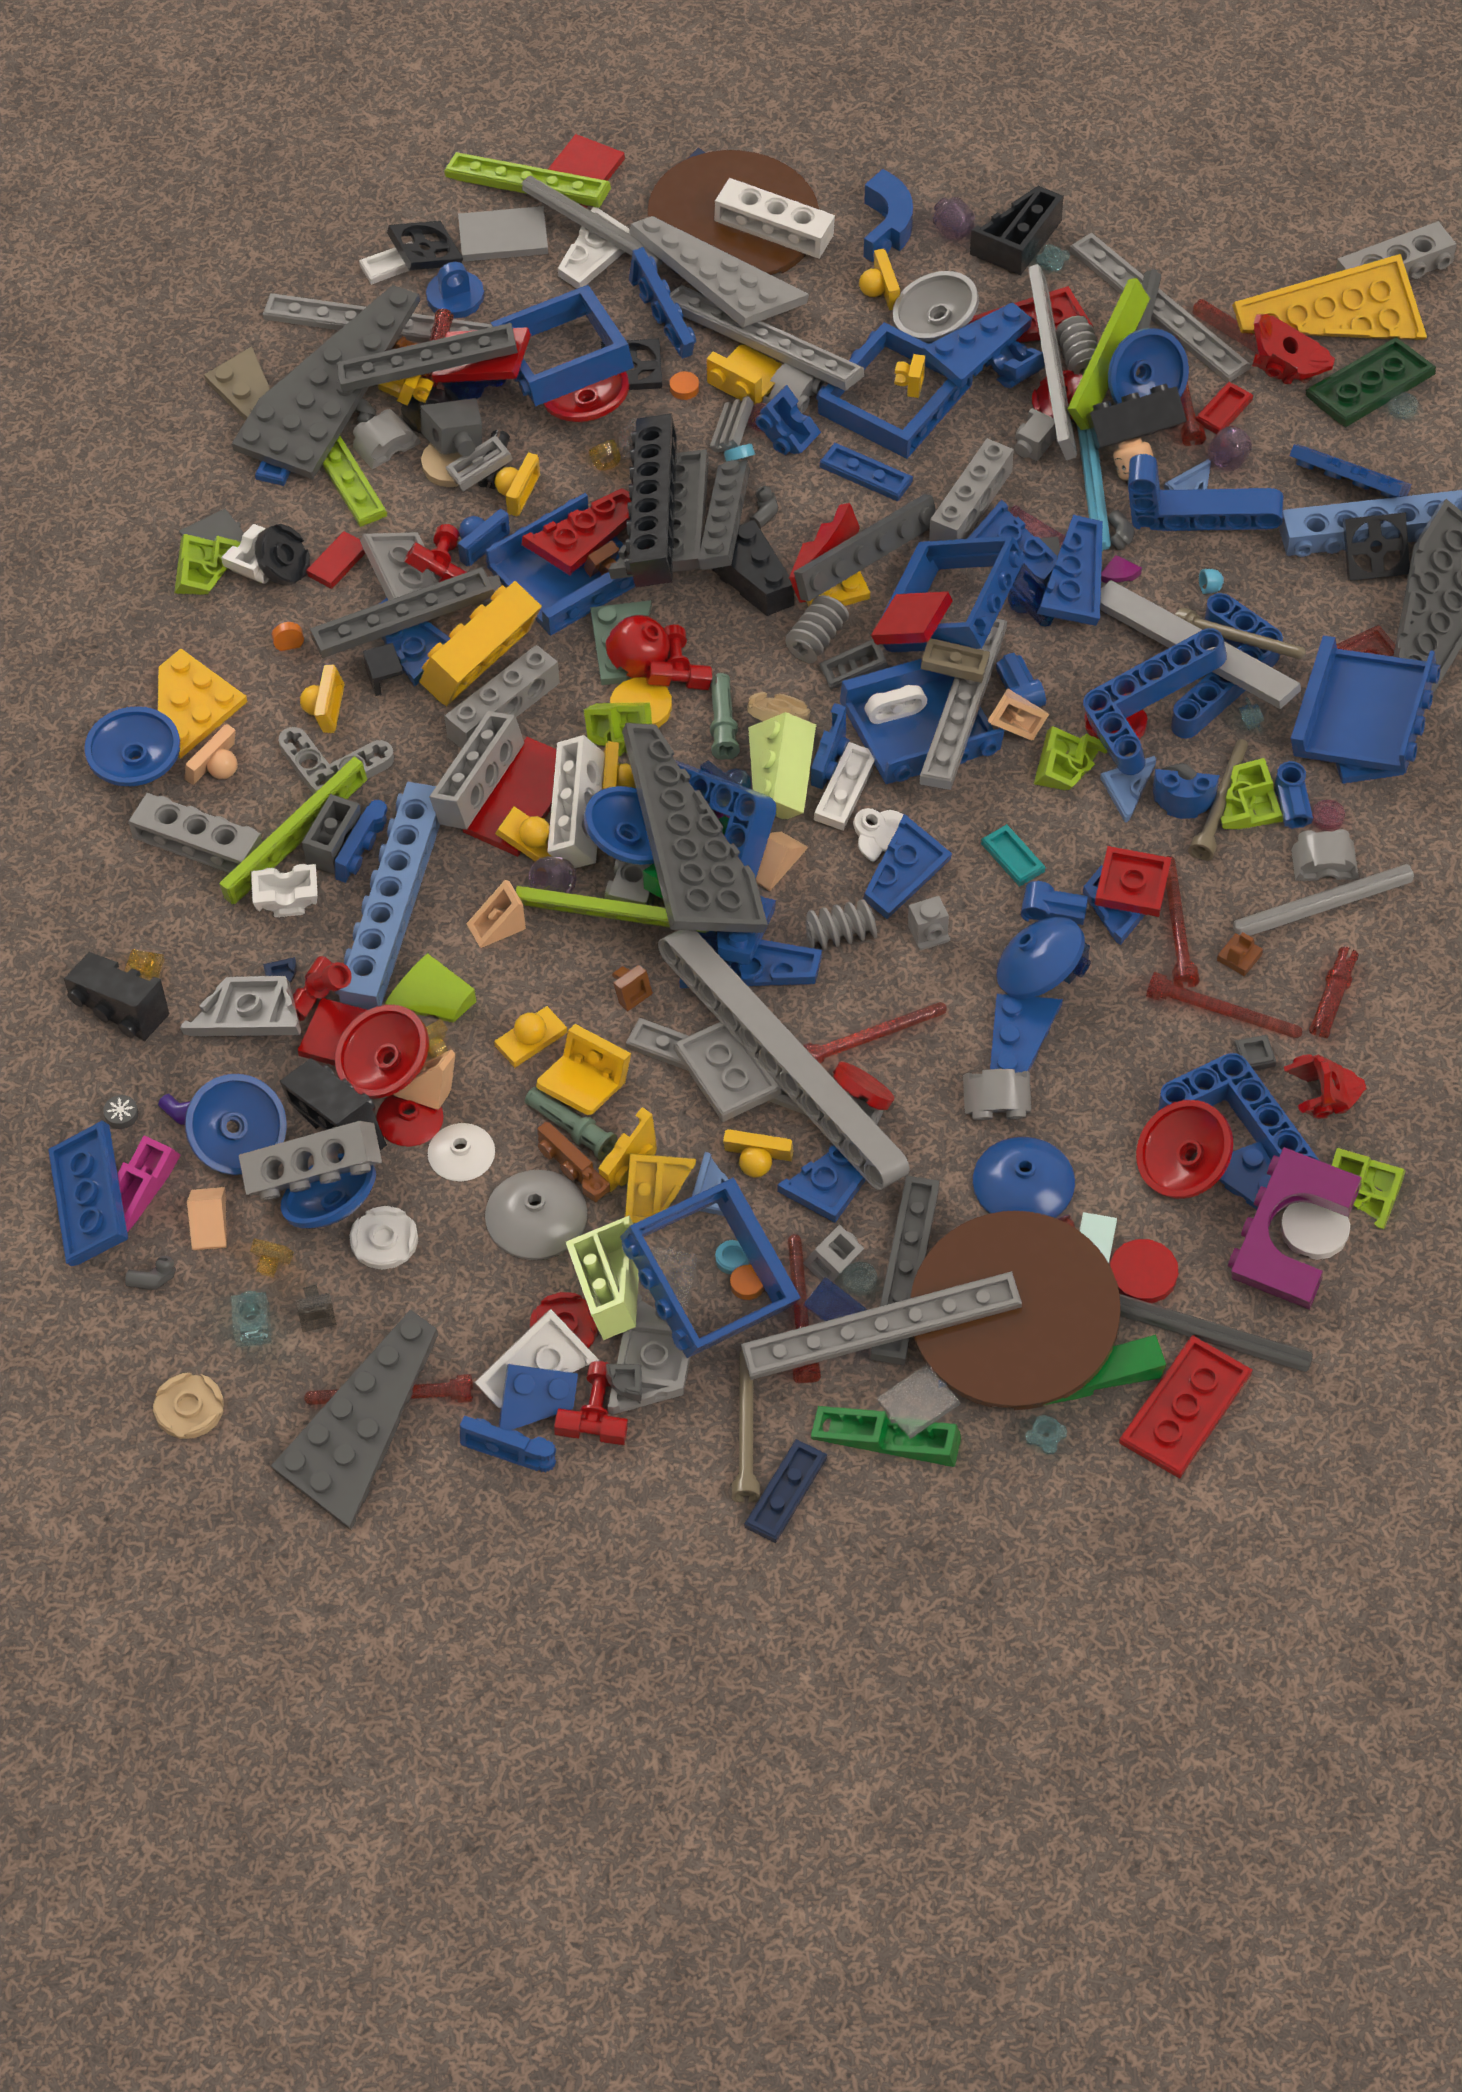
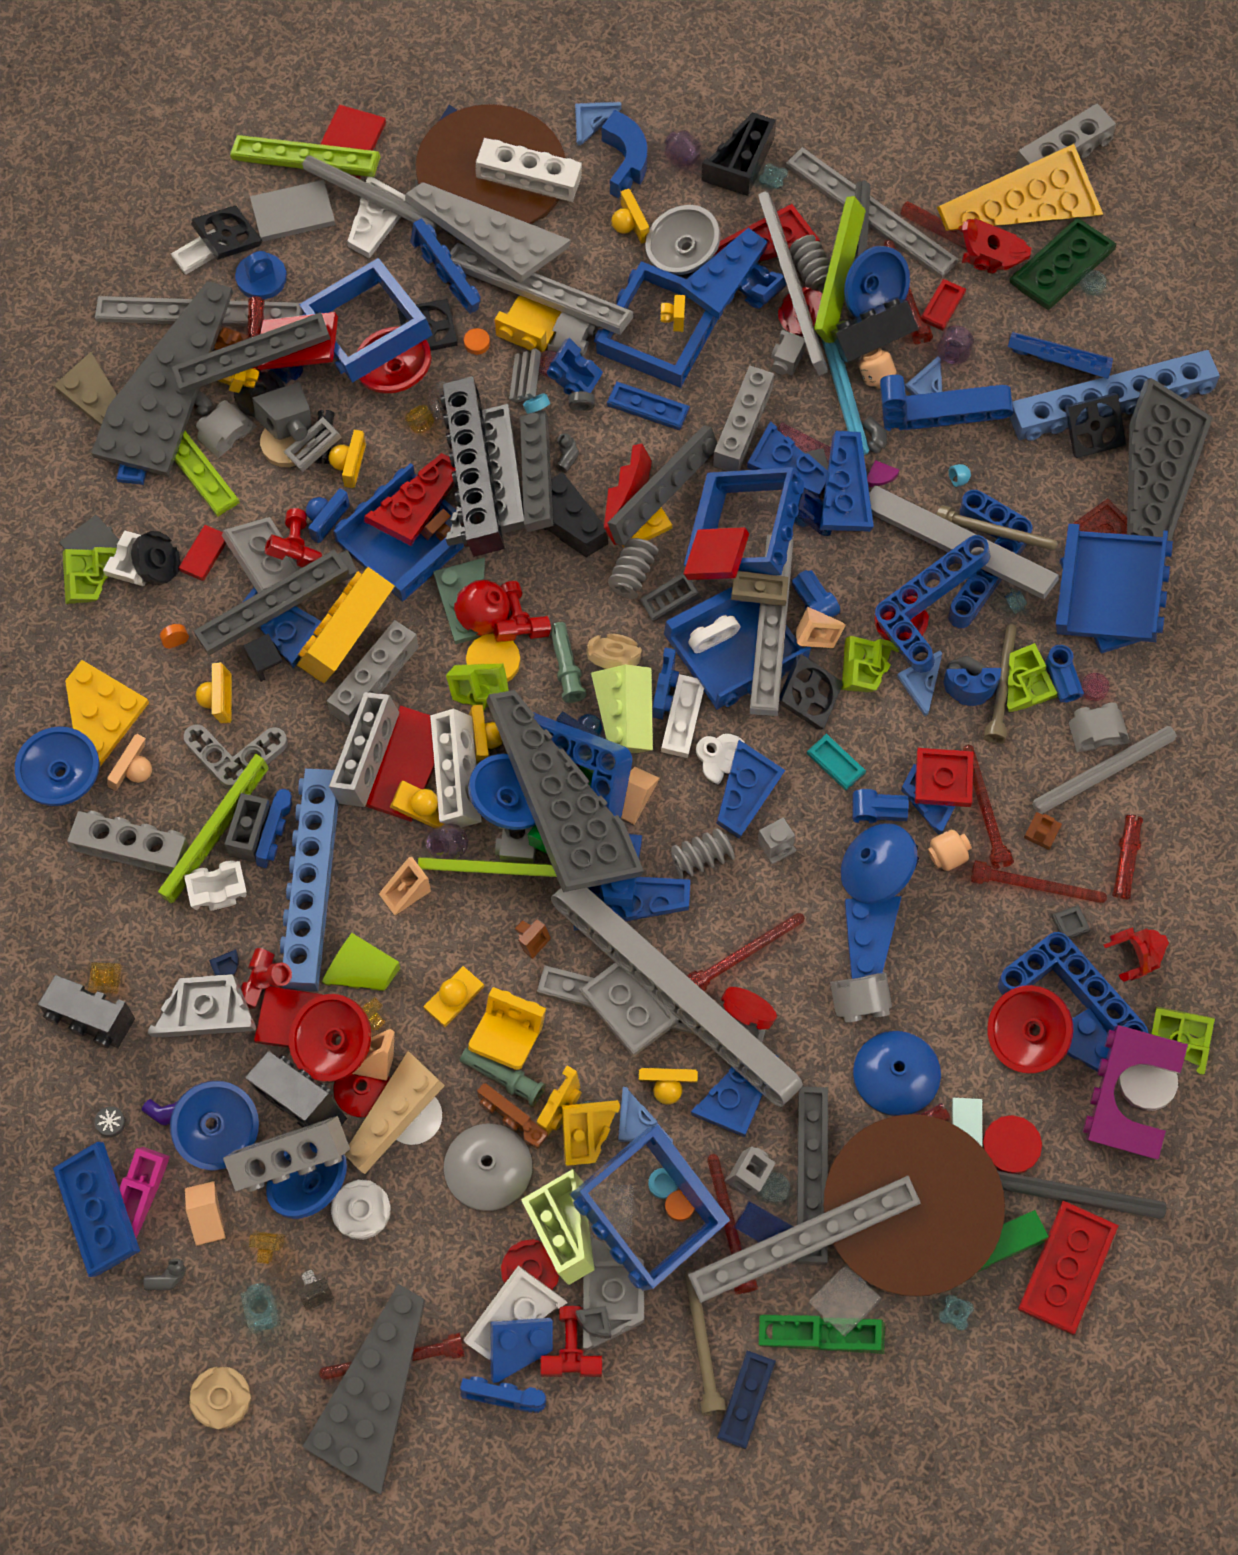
camera: 10 degrees left, 10 degrees up
(440, 1138) = (395, 1109): none -> tan wing
(790, 456) = (581, 401): none -> dark grey tile
(854, 177) = (592, 117): none -> medium blue tile
(1007, 760) = (827, 703): none -> black piece
(1126, 958) = (949, 850): none -> light nougat head

